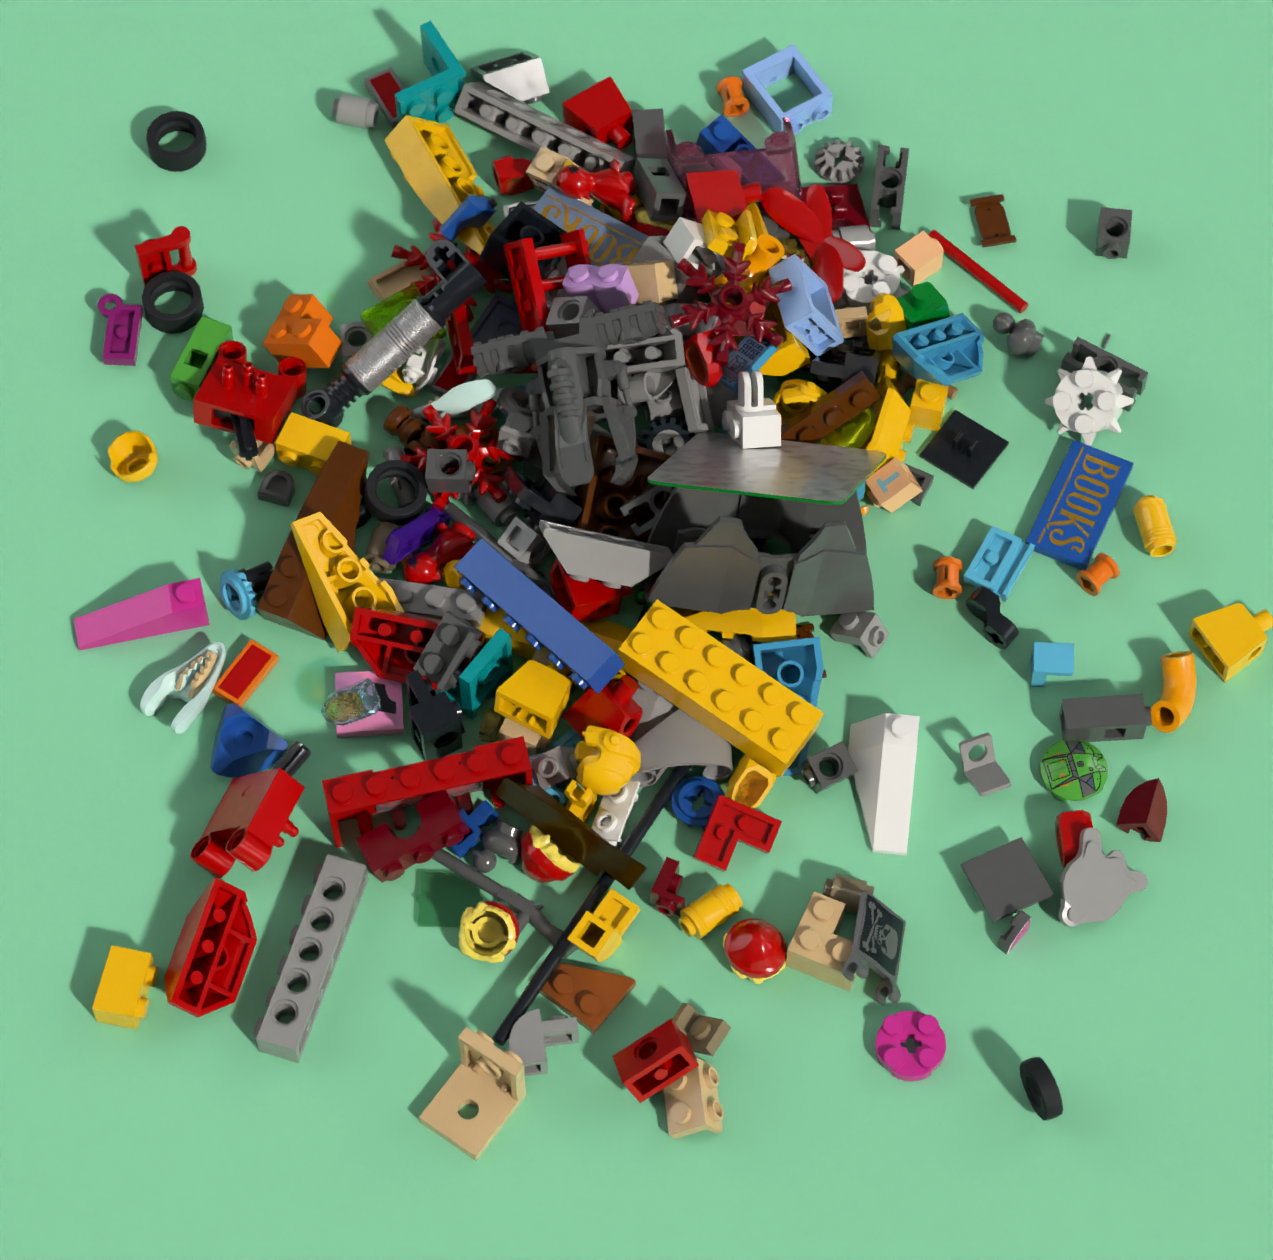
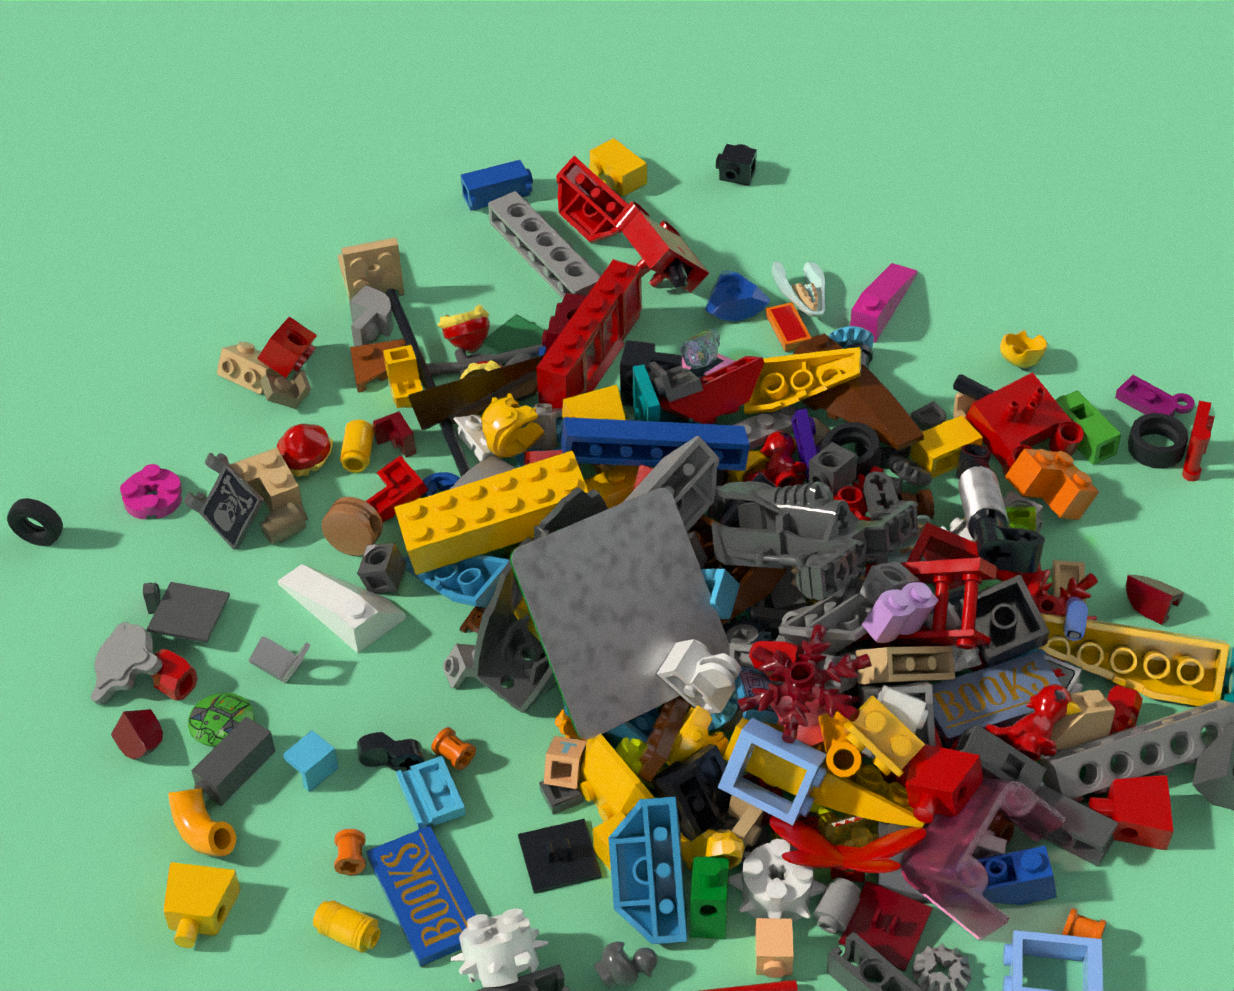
camera: 130 degrees right, 15 degrees down
(31, 876) = (737, 164): none -> black brick
(246, 1085) = (494, 182): none -> blue brick
(367, 212) = (1152, 597): none -> dark red brick
(378, 446) = (909, 470): none -> dark grey gear
(447, 422) = (874, 497): none -> dark grey beam
(657, 454) = (722, 589): none -> medium azure panel
(811, 821) = (352, 525): none -> medium nougat head

